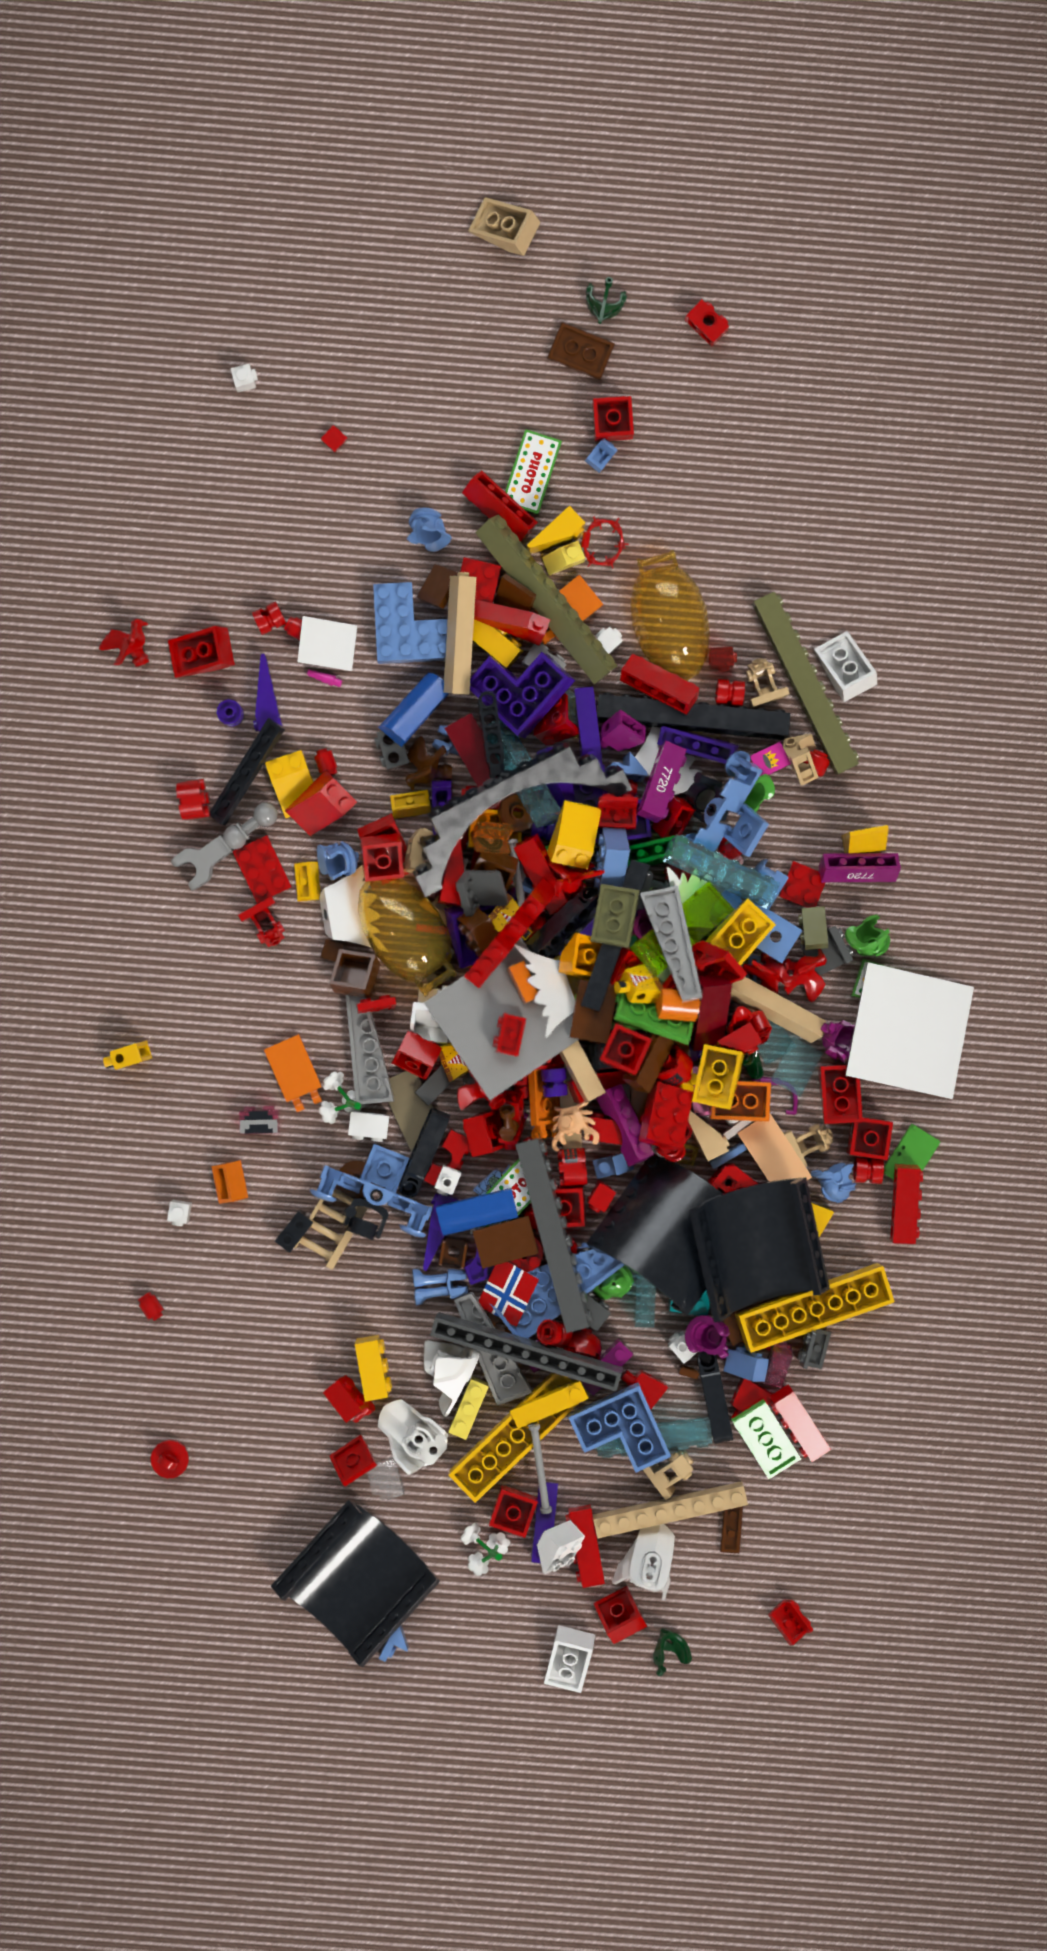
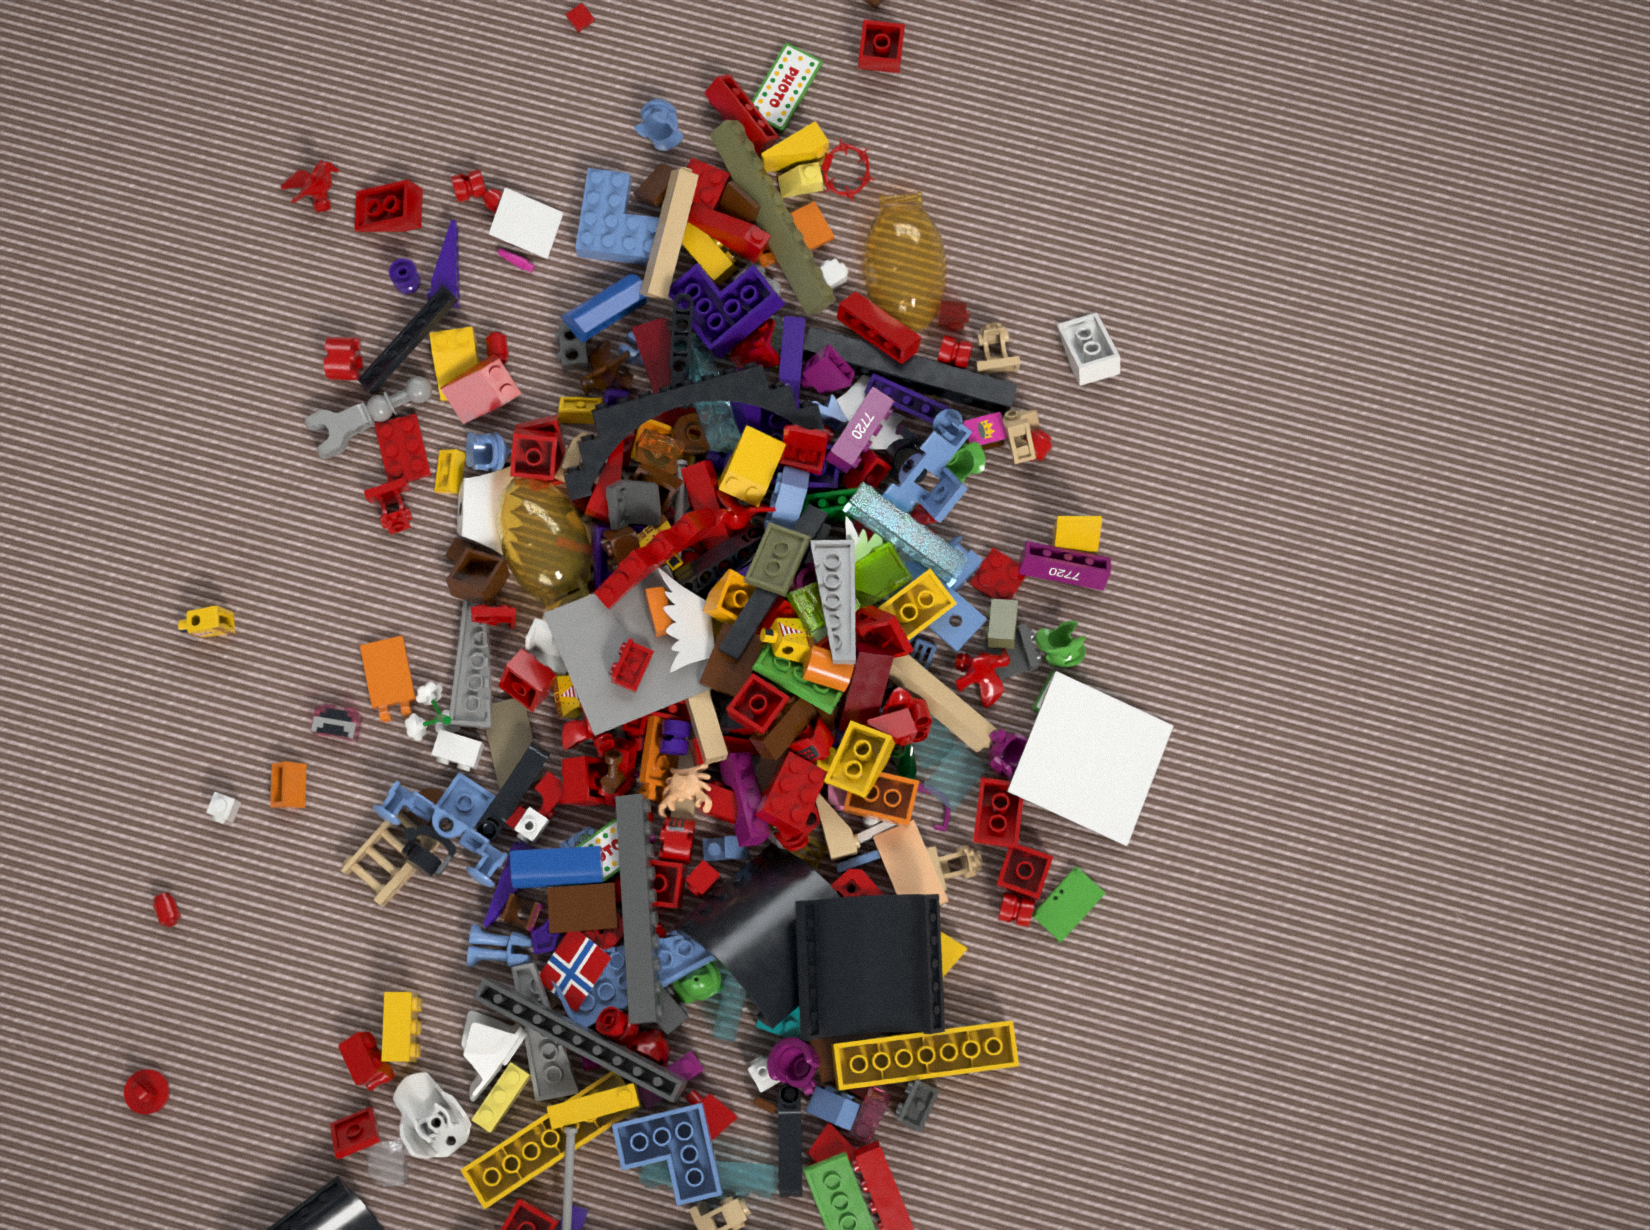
camera: 10 degrees right, 10 degrees down
(294, 1231) = (346, 852): black bracket -> none
(433, 1086) = (540, 721): dark grey tile -> none
(601, 455) = (862, 82): medium blue bracket -> none
(770, 973) = (942, 661): red animal -> none
(805, 683) = (1041, 359): olive brick -> none
(835, 1182) = (975, 915): medium blue helmet -> none
(905, 1204) = (1052, 955): red brick -> none

